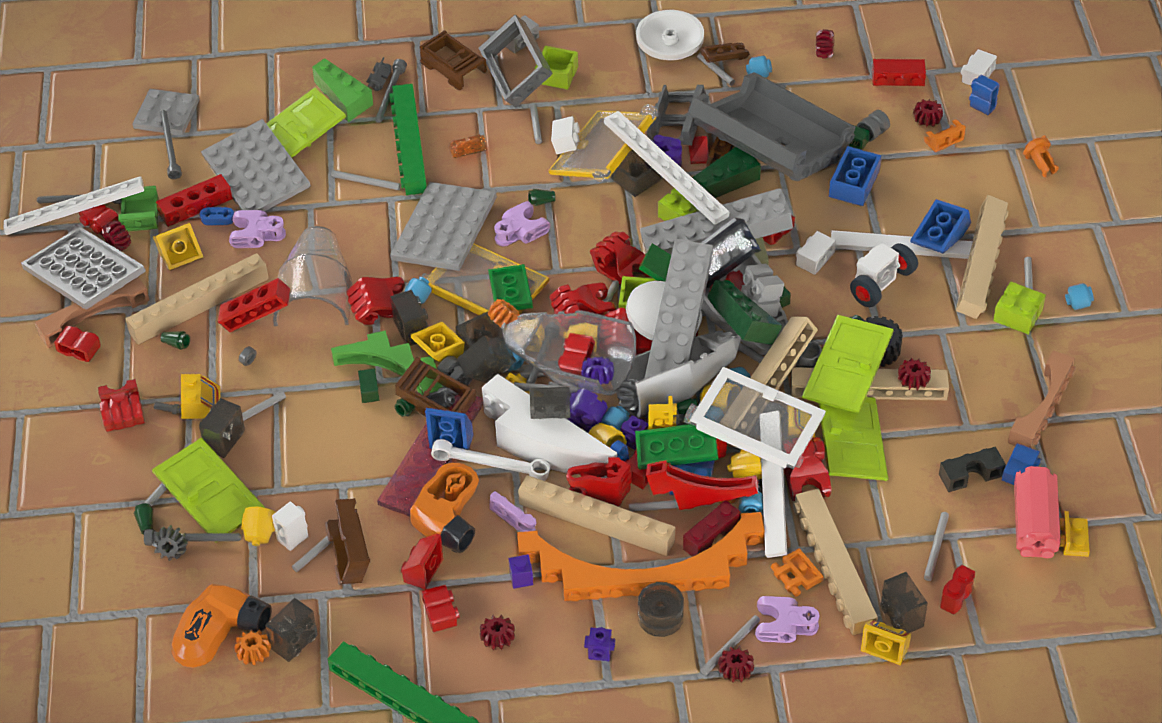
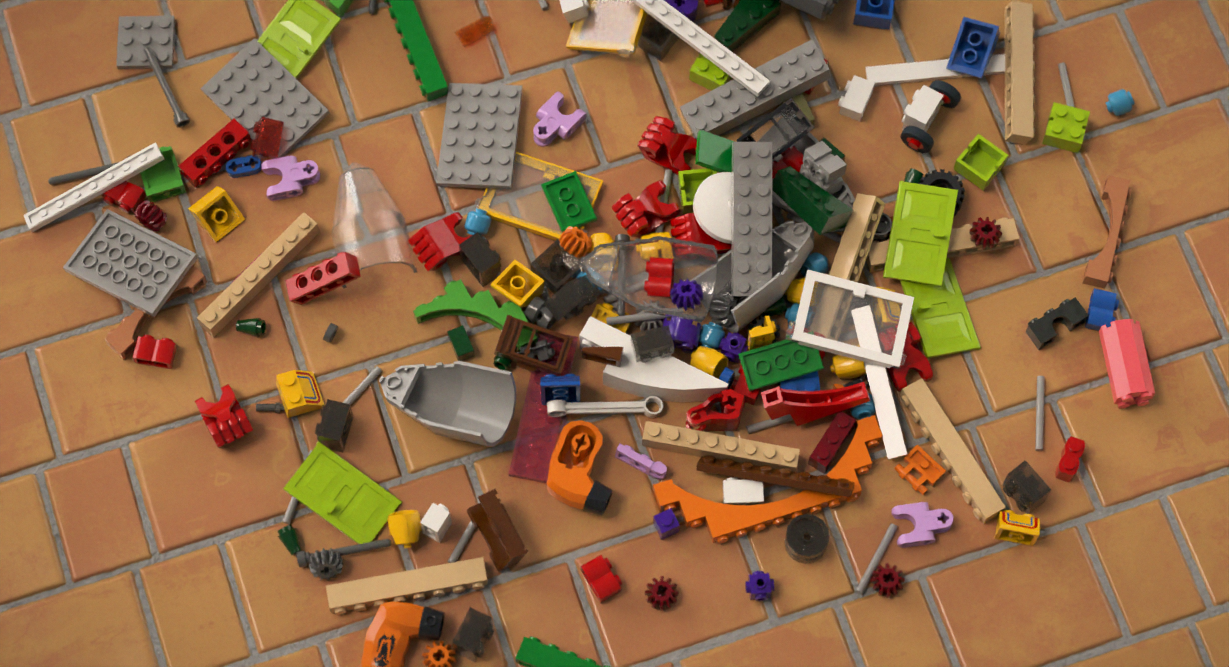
camera: 15 degrees left, 20 degrees up
(245, 192) = (267, 138): none -> clear red bracket
(249, 577) = (407, 585): none -> tan brick
(347, 426) = (455, 399): none -> light grey windscreen
(366, 180) = (382, 91): light grey bar -> none
(423, 561) = (571, 533): red slope -> none
(499, 403) = (605, 355): none -> reddish brown slope
(539, 197) = (567, 80): dark green cone -> none
(608, 555) = (742, 492): none -> white brick
(651, 546) = (775, 476): none -> reddish brown plate
(925, 320) = (982, 163): none -> lime piece
(1074, 536) = (1163, 376): yellow bracket -> none

